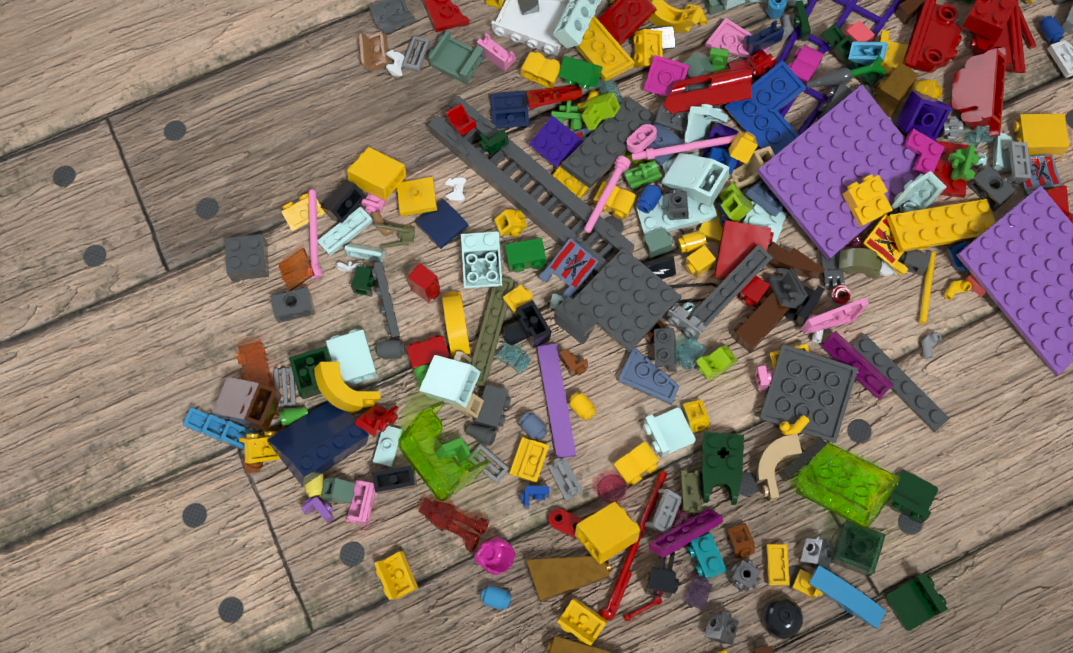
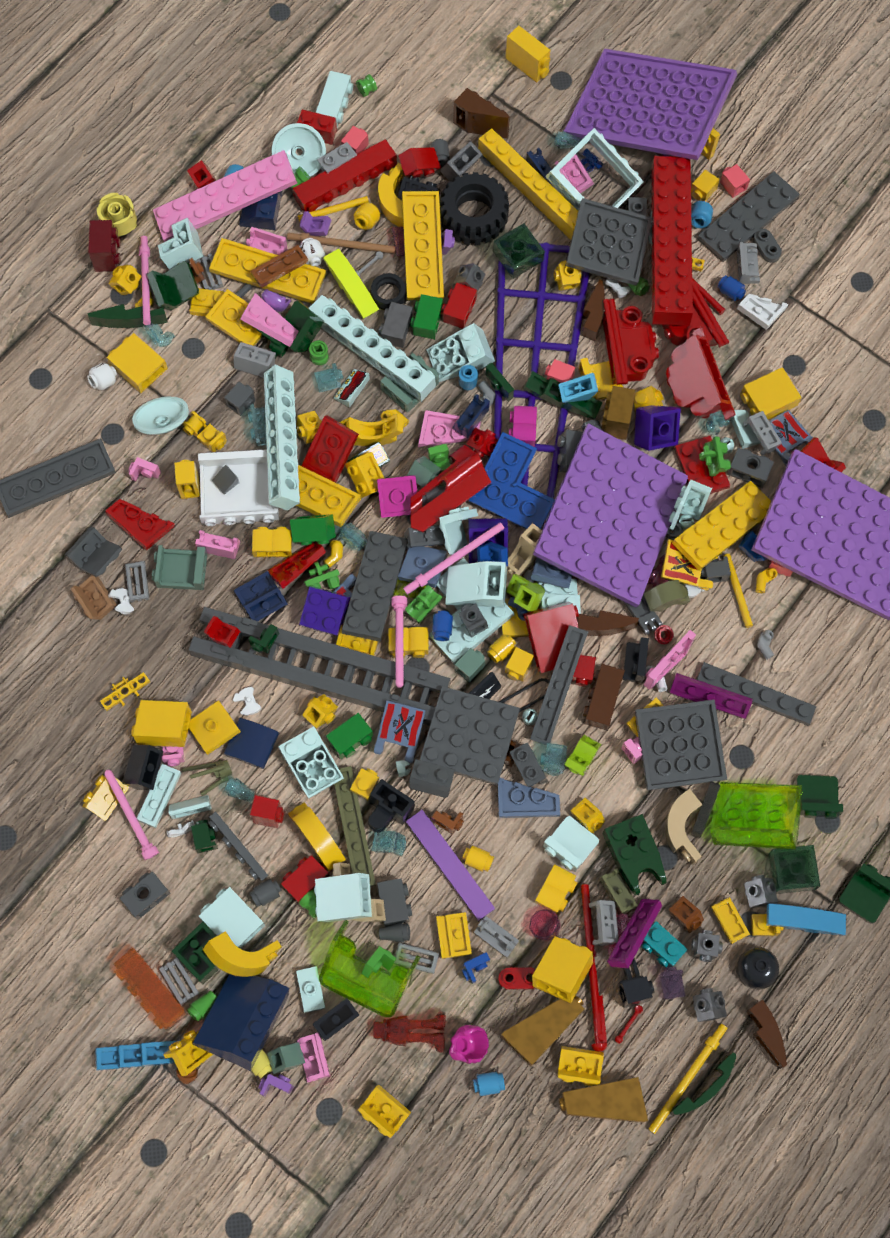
camera: 30 degrees left, 0 degrees up
(246, 257) = (73, 869): dark grey brick -> none
(247, 403) = (153, 1016): slope -> none
(296, 269) = (130, 858): clear orange piece -> none
(365, 129) = (119, 695): none -> yellow piece
(377, 219) = (187, 770): medium nougat arm -> none
(377, 419) = (289, 969): red bracket -> none
(411, 255) = (237, 789): none -> clear light blue cone
(533, 426) = (441, 901): sand blue brick -> none
(600, 108) = (349, 557): lime brick -> none
(641, 138) = (405, 570): bright pink plate -> none
(692, 327) = (544, 733): light grey hinge -> none
(743, 146) = (508, 535): yellow brick -> none
(787, 288) = (613, 652): dark grey hinge -> none
(790, 429) = (685, 784): yellow arm -> none
(845, 75) = (568, 420): dark grey piece -> none
(867, 199) = (646, 533): yellow plate -> none
(927, 149) = (678, 459): dark pink plate -> none
(952, 128) = (688, 426): light grey gear -> none

